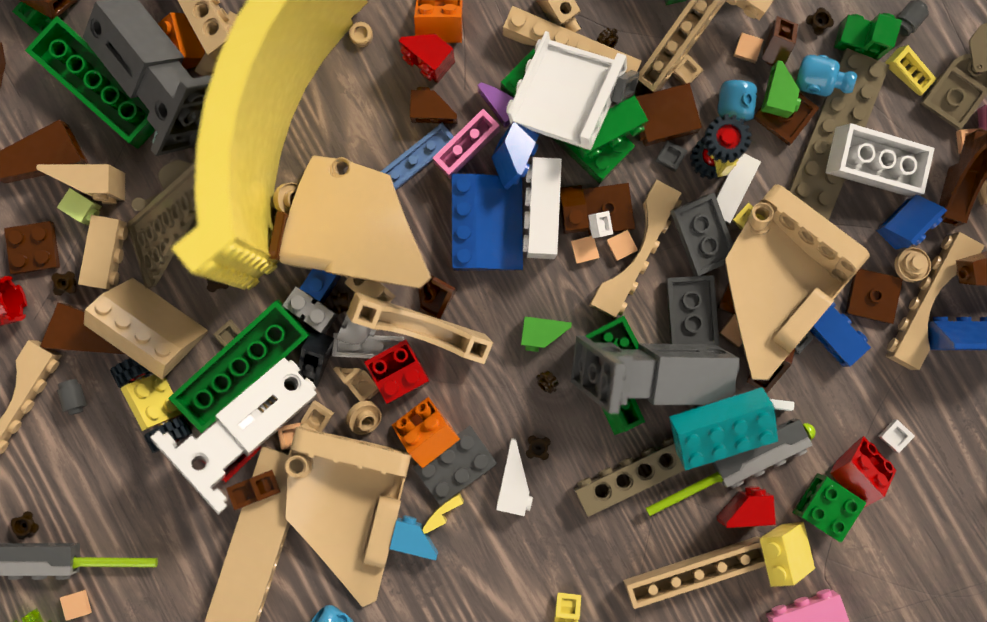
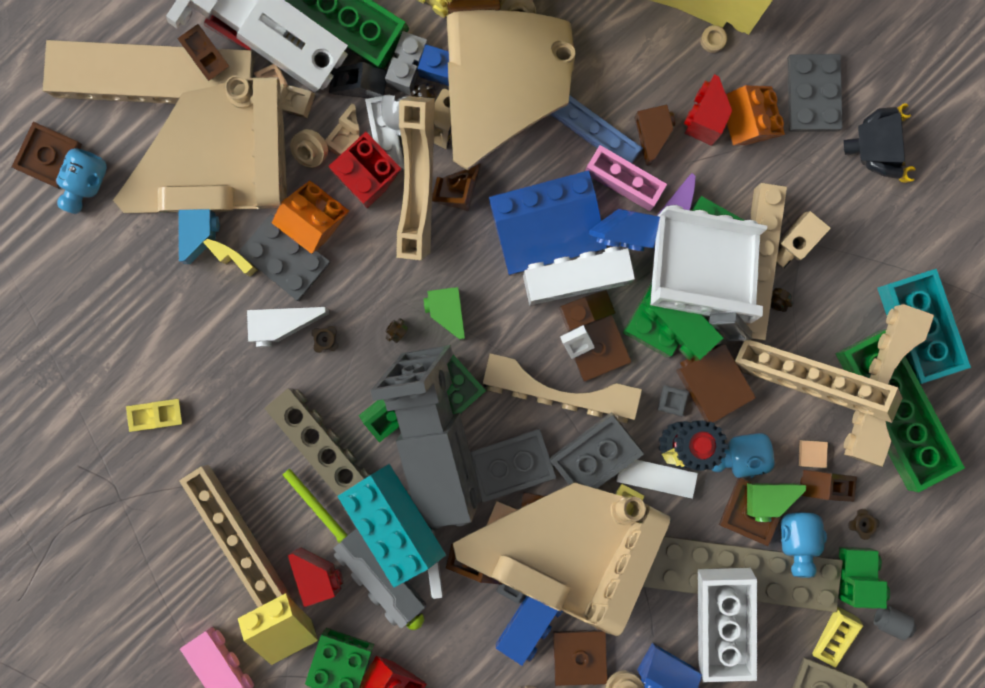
camera: 70 degrees right, 0 degrees up
(584, 249) = (547, 334): light nougat tile -> none
(622, 245) = (562, 372): light nougat tile -> none
(687, 70) = (770, 394): tan tile -> none

